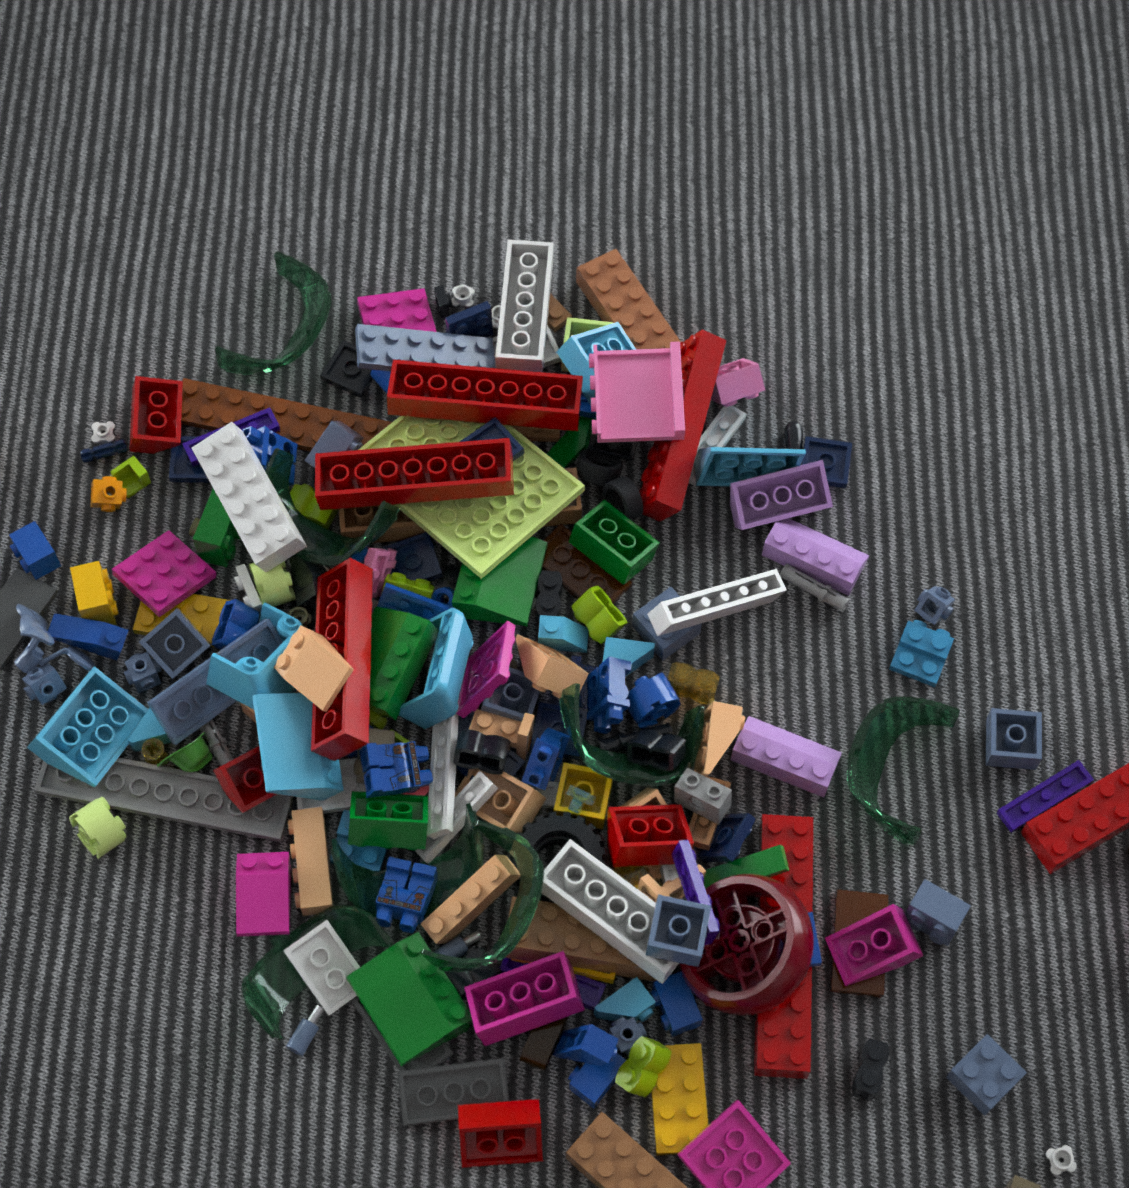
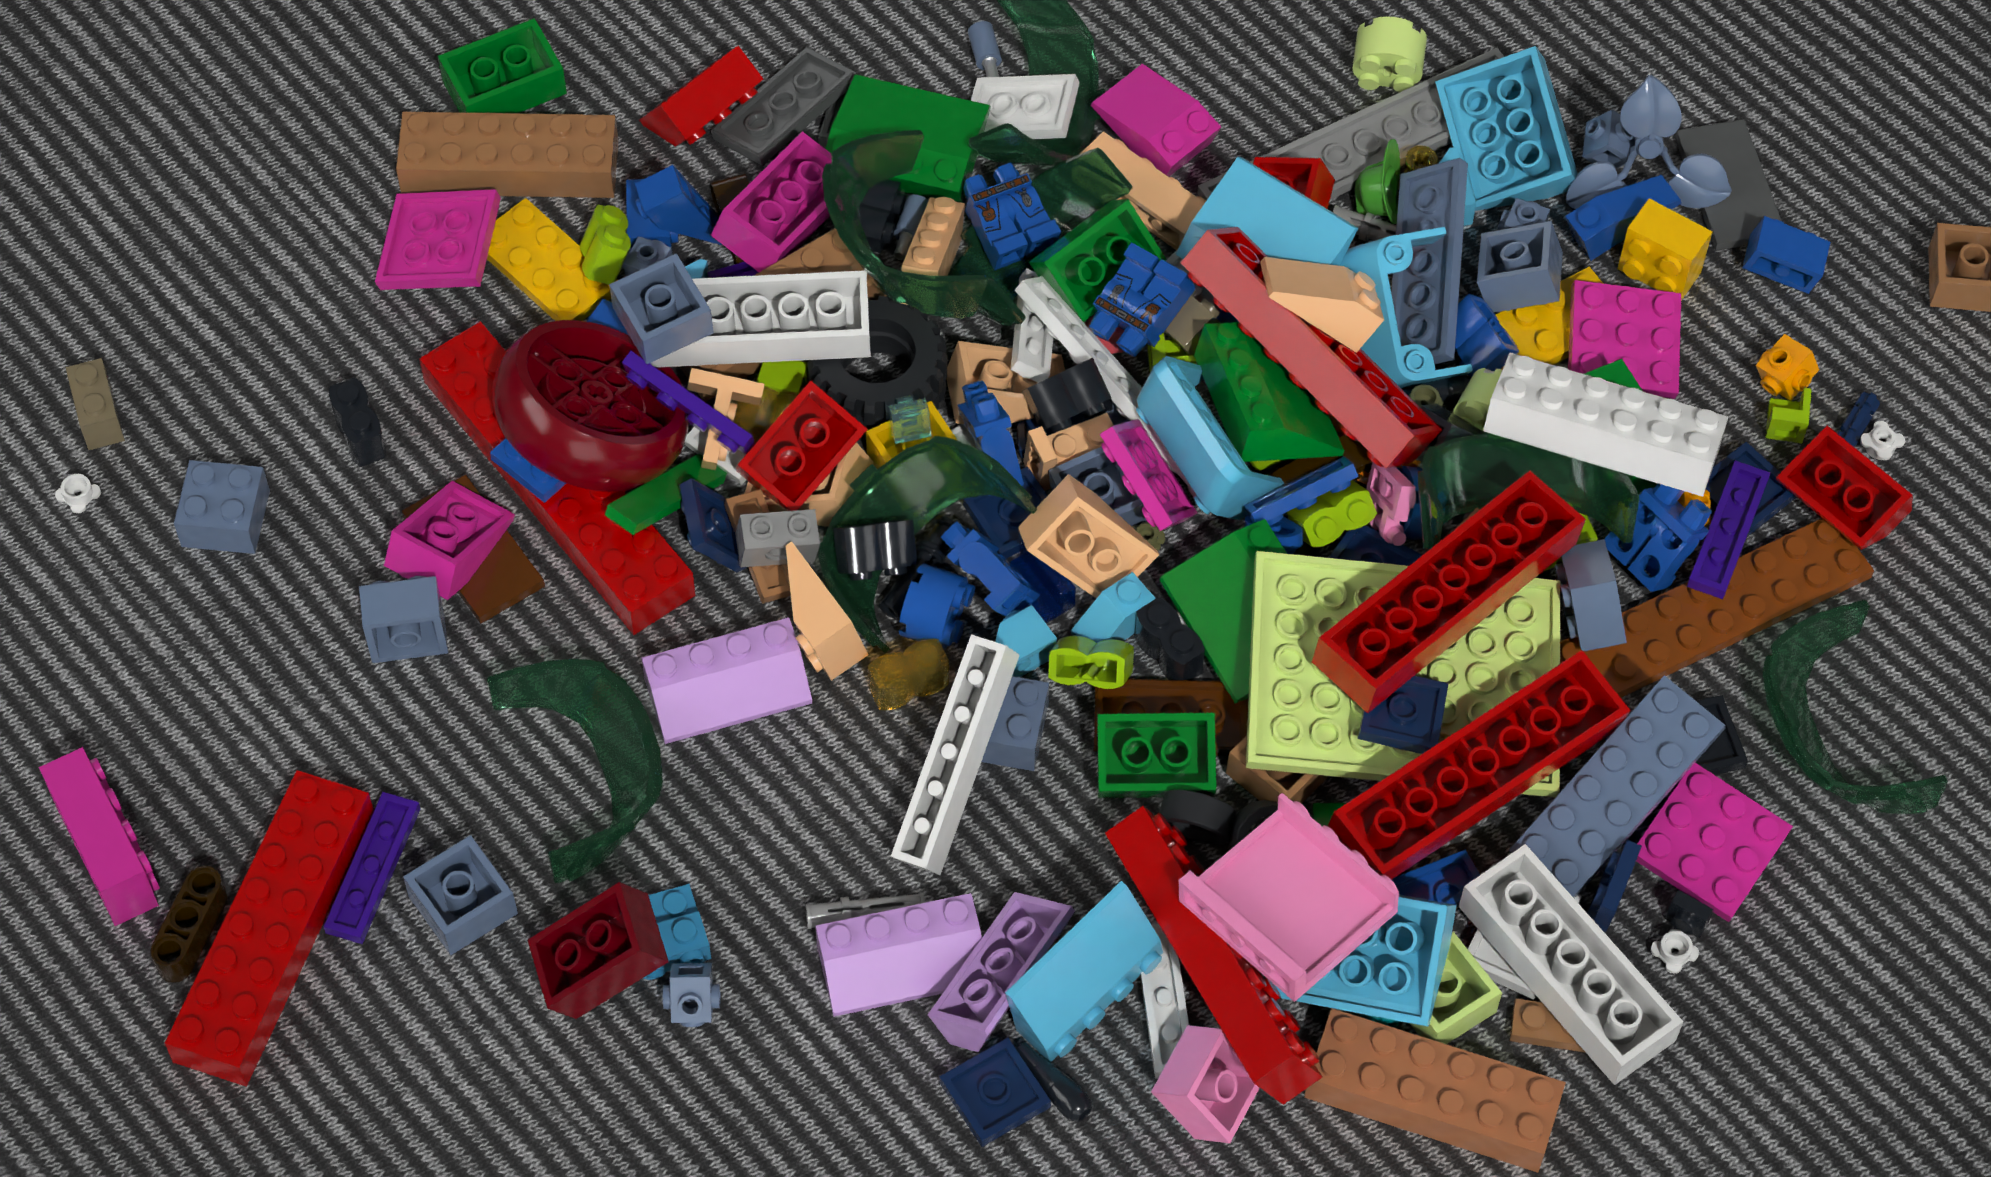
camera: 140 degrees right, 5 degrees down
(970, 648) = (597, 950): none -> dark red brick

